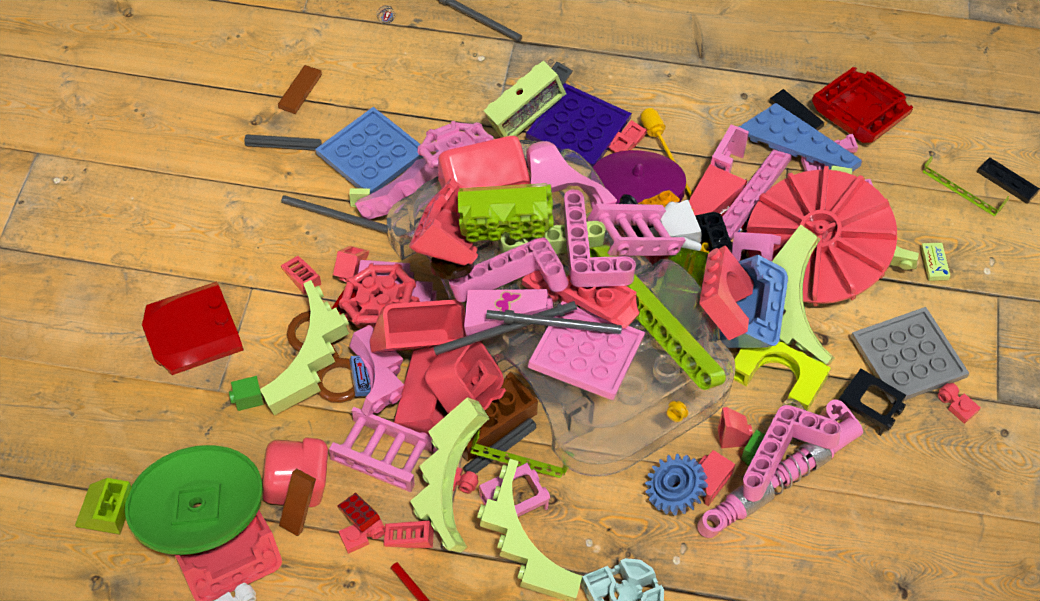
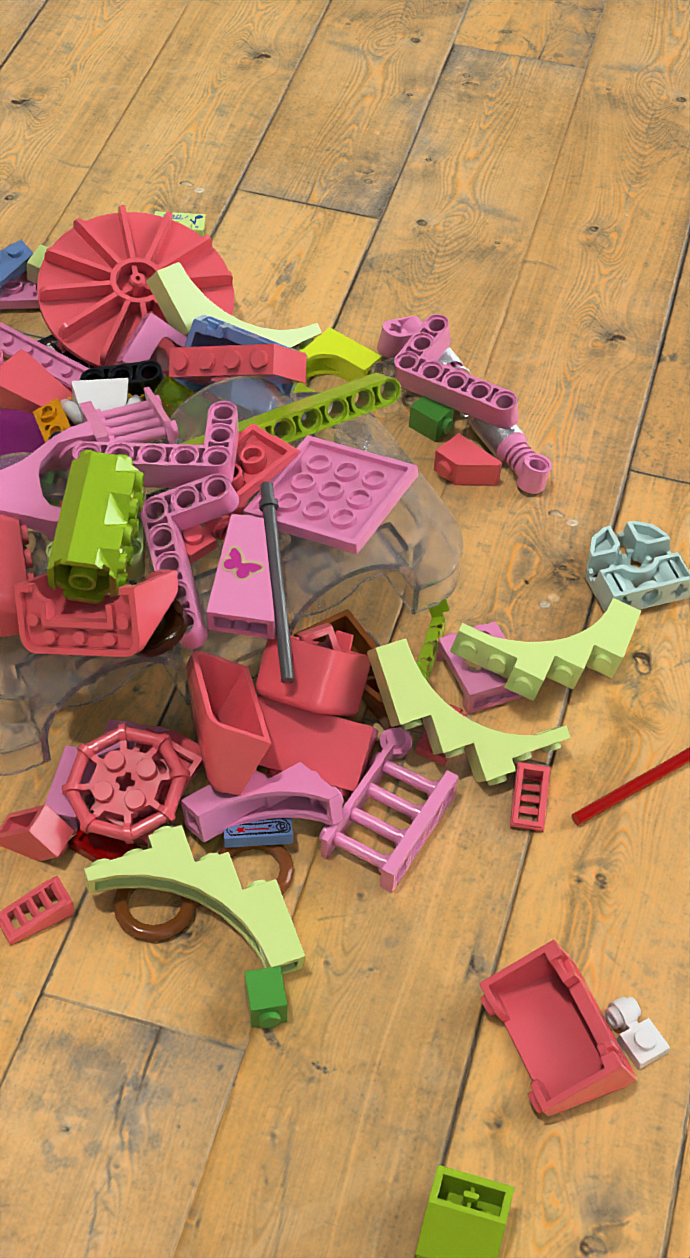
camera: 85 degrees left, 5 degrees down
(164, 496) = (462, 1020): bright green dish -> none
(190, 329) = (111, 1088): red wedge -> none
(283, 458) = (429, 924): coral piece -> none
(297, 502) = (491, 913): dark orange tile -> none
(355, 539) = (526, 863): coral plate -> none
(359, 512) = (496, 849): red tile -> none
(510, 317) = (275, 555): dark grey bar -> none
(677, 411) = (401, 450): yellow plate -> none
(679, 497) = (482, 477): medium blue gear -> none
(733, 429) = (406, 431): coral slope -> none
(856, 390) = (363, 320): black window -> none
(910, 354) = (312, 269): light grey plate -> none
(962, 407) = (384, 243): coral plate -> none
(971, 199) = (113, 155): lime piece -> none
(1008, 180) = (73, 144): black tile -> none

